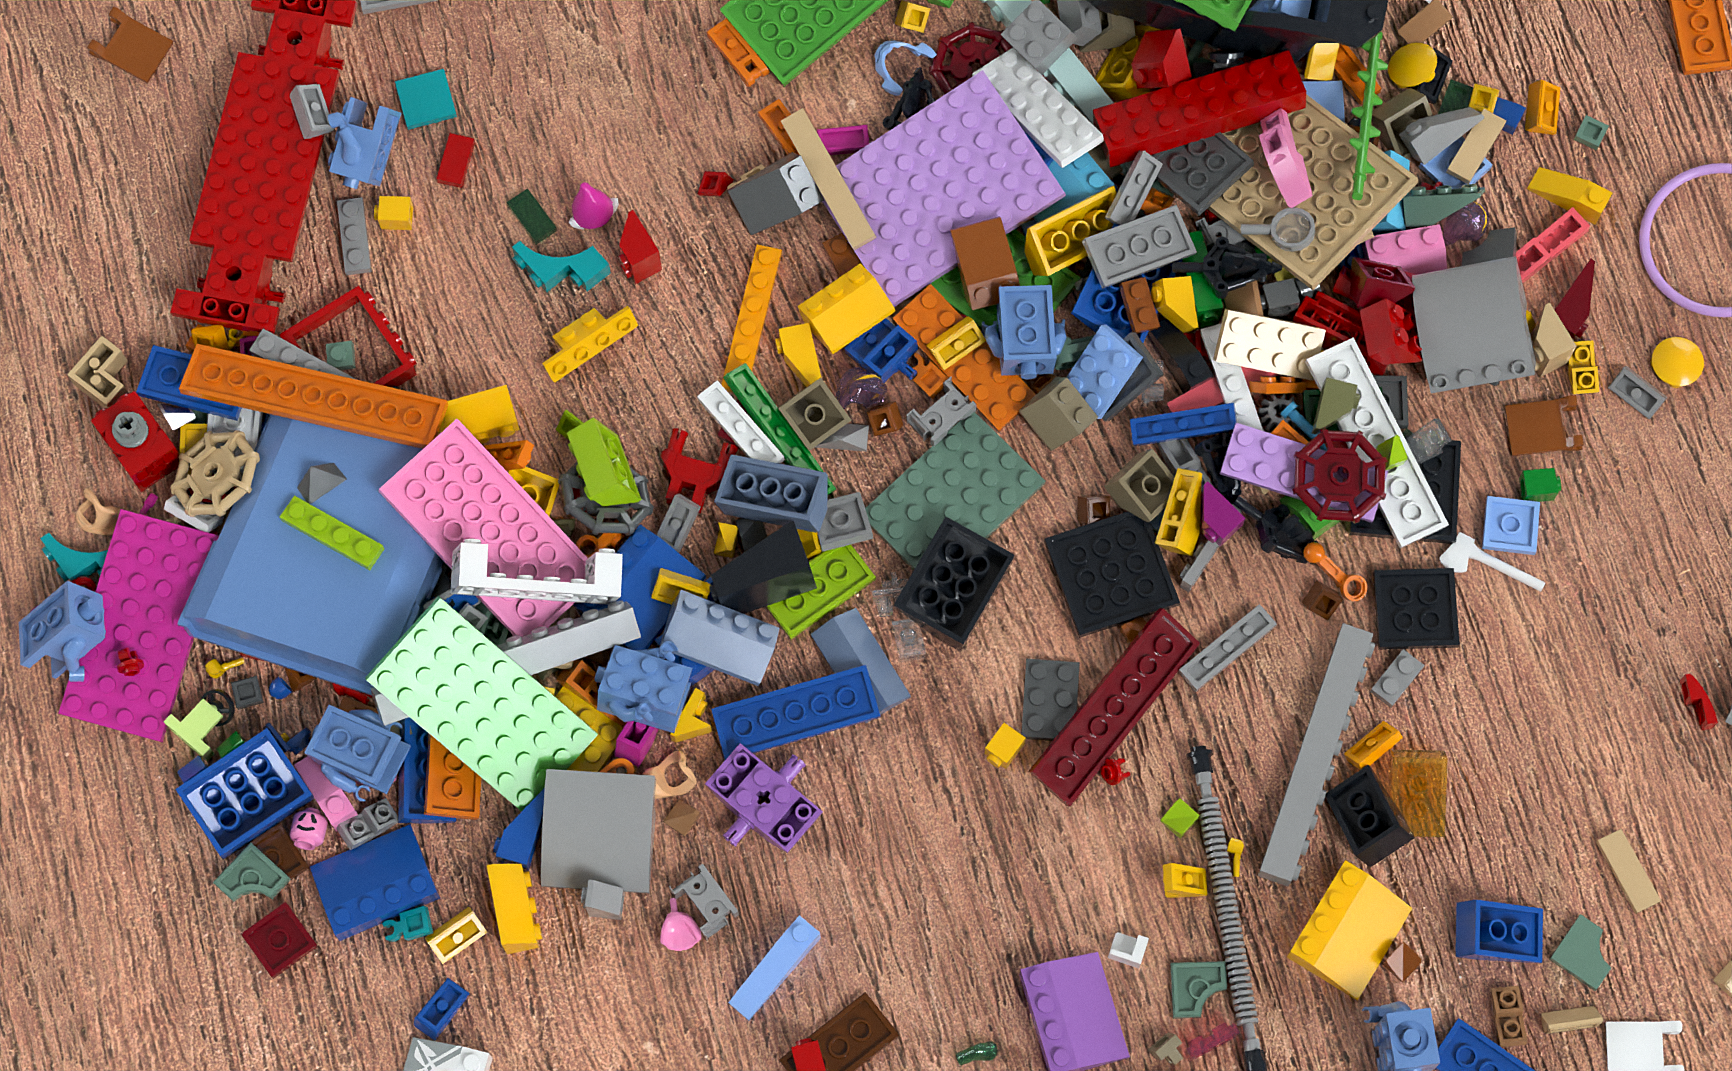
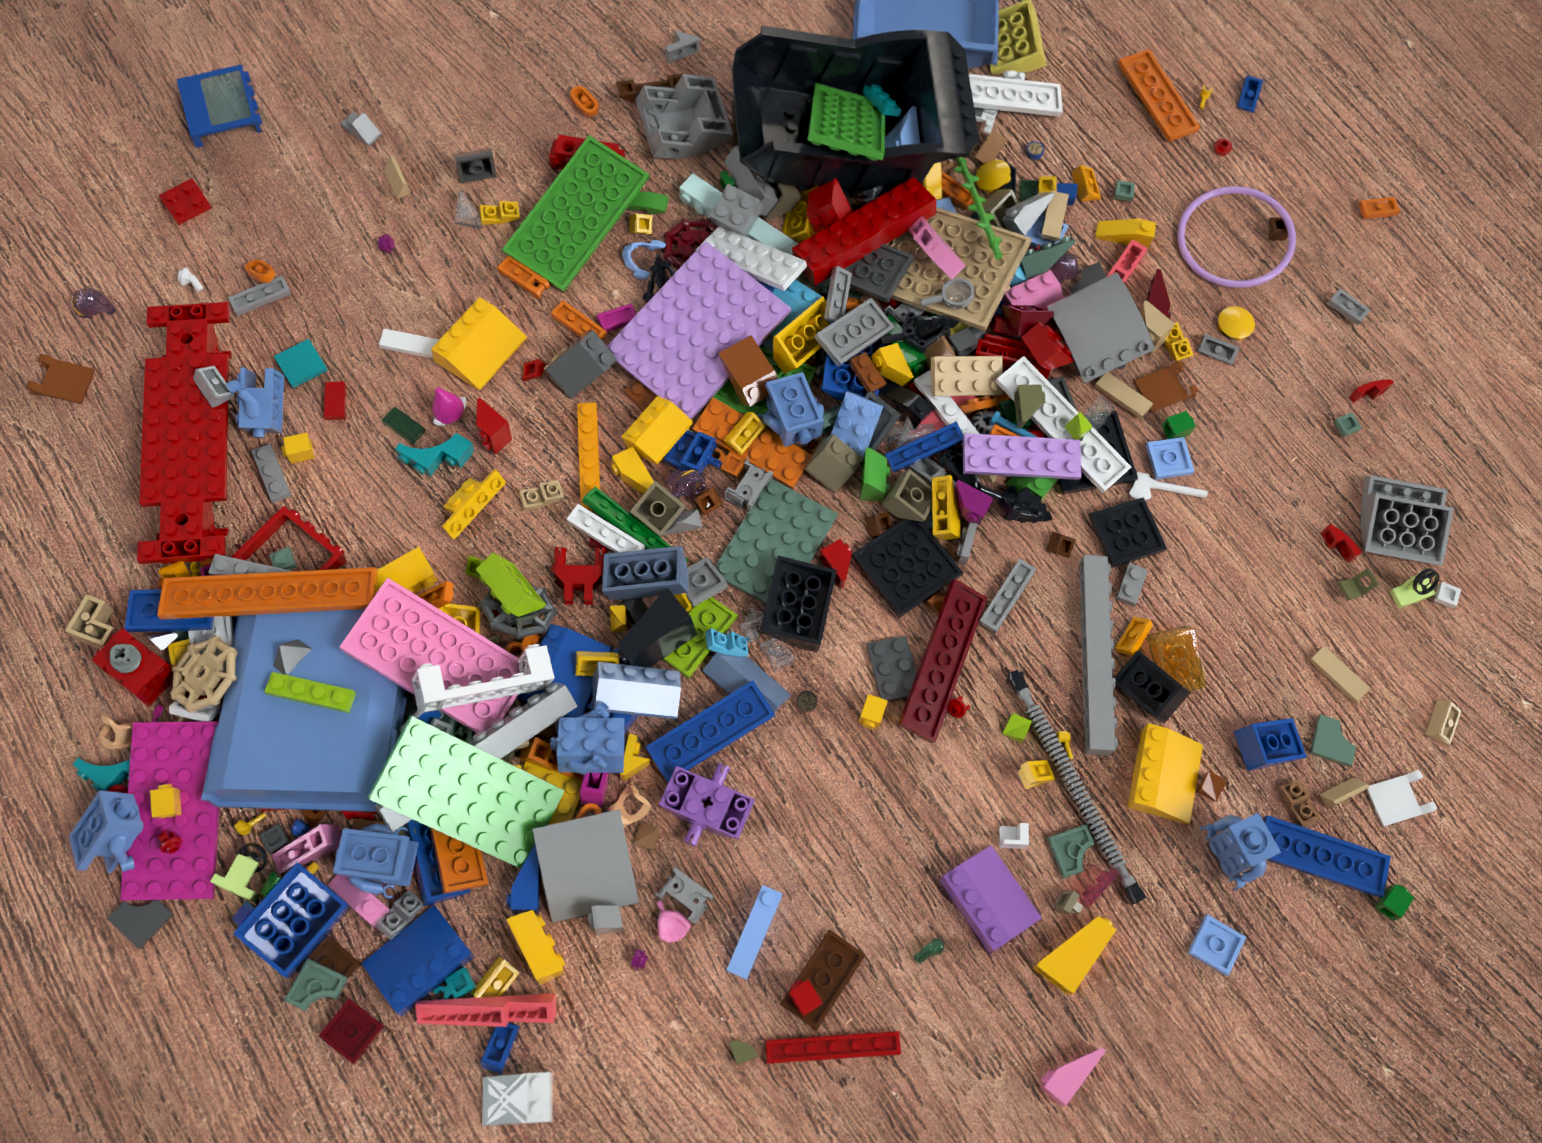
camera: 25 degrees left, 5 degrees down
(74, 745) = (140, 923): none -> dark grey tile
(136, 614) = (165, 802): none -> yellow brick
(284, 714) = (308, 847): none -> bright pink slope
(296, 744) = (324, 868): dark blue bracket -> none
(308, 829) = (352, 933): bright pink head -> none
(439, 964) = (488, 1010): none -> coral slope
(579, 113) = (407, 343): none -> white tile
(629, 959) = (639, 959): none -> magenta plate
(654, 132) = (478, 344): none -> yellow slope
(678, 355) = (541, 496): none -> tan slope
(678, 521) = (579, 613): light grey plate -> none
(828, 179) = (617, 343): tan tile -> none
(851, 611) = (729, 644): none -> medium azure slope
(927, 709) = (806, 701): none -> clear smoke tile
(1024, 541) = (837, 557): none -> red slope
(1106, 444) = (873, 476): none -> bright green slope
(1167, 403) = (909, 434): none -> clear slope
(1315, 553) = (1047, 511): orange piece -> none
(1350, 487) = (1046, 460): dark red plate -> none
(1481, 422) = (1123, 395): none -> tan tile
(1487, 40) = (1034, 150): none -> tile
(1693, 764) = (1353, 588): none -> olive bracket

